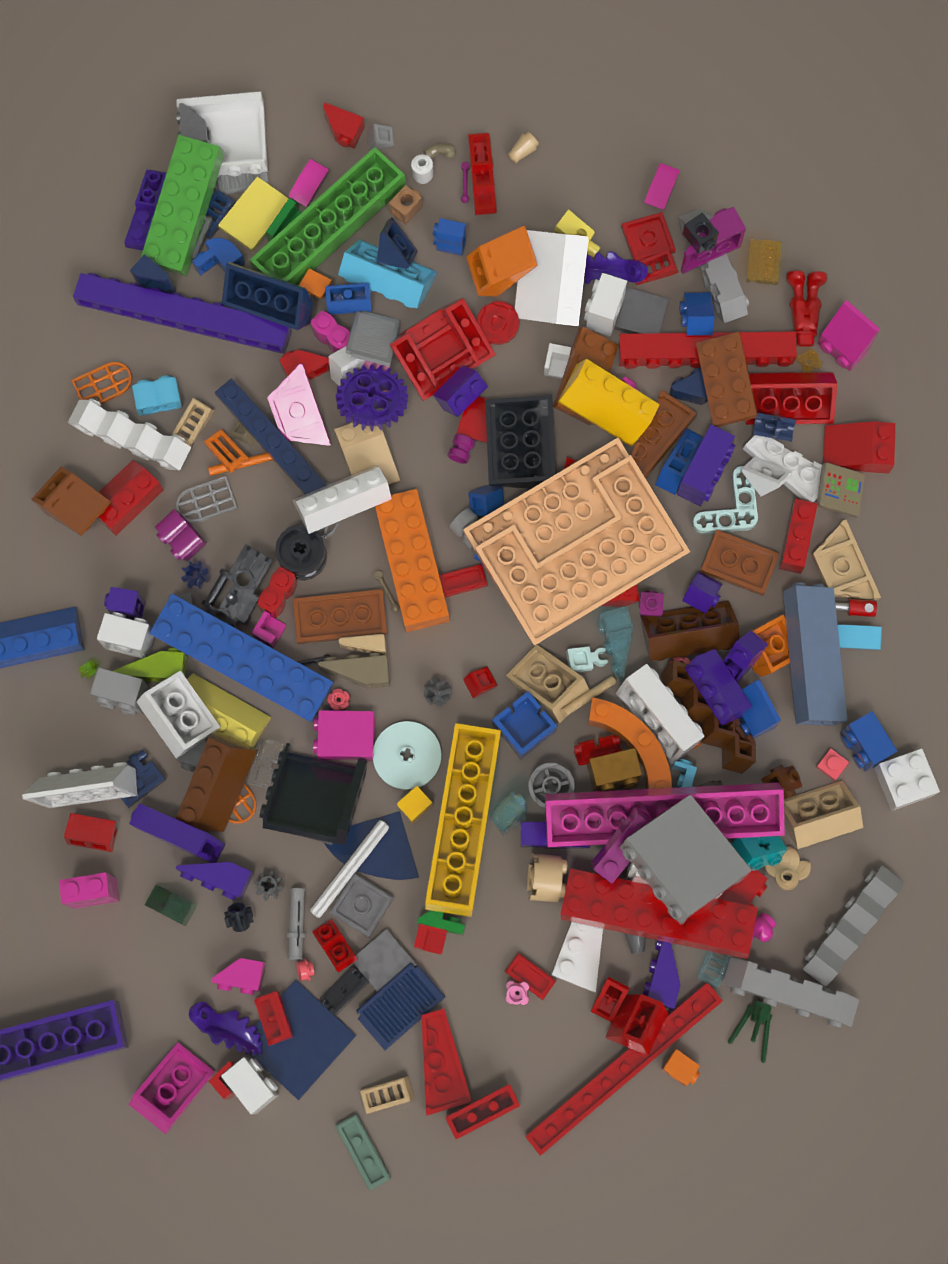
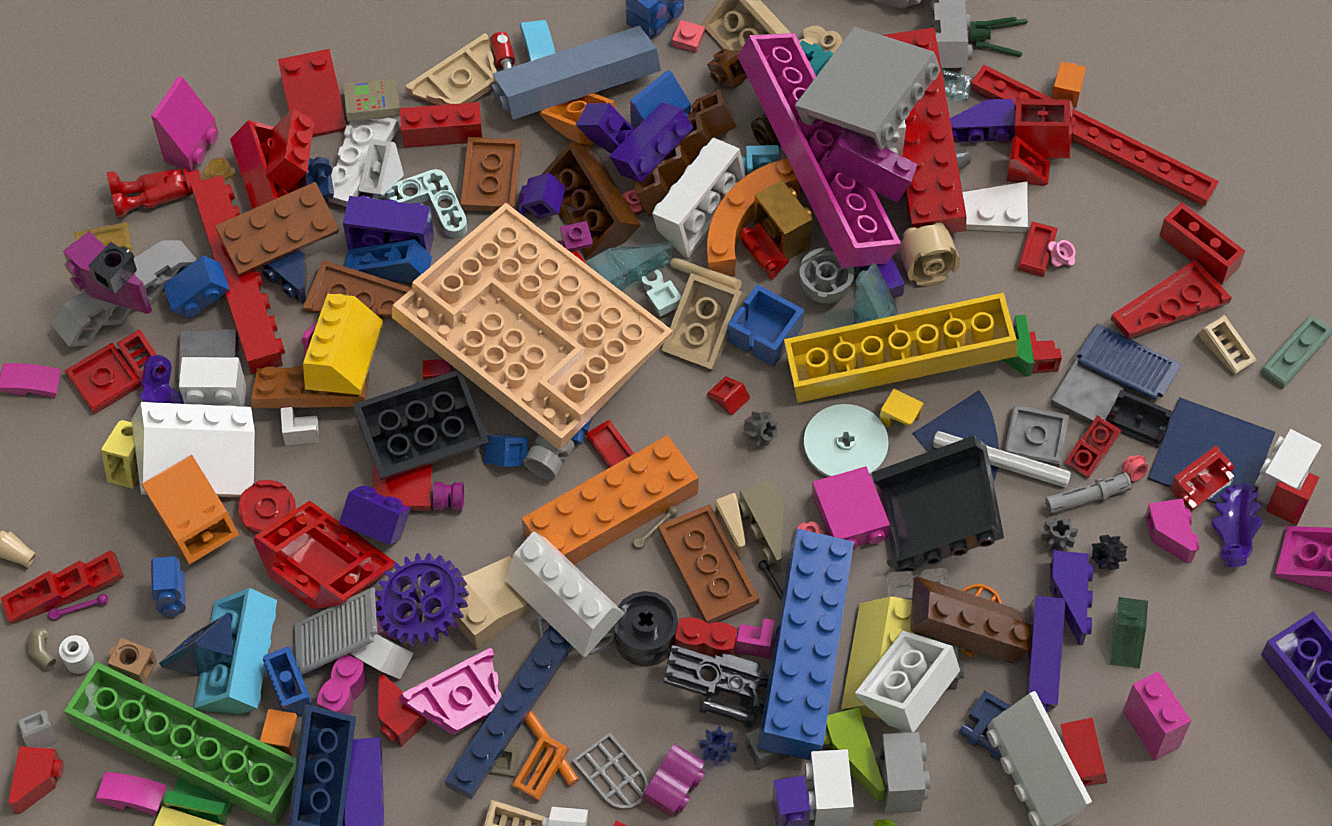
camera: 110 degrees left, 15 degrees down
(802, 409) = (290, 149): none -> red brick

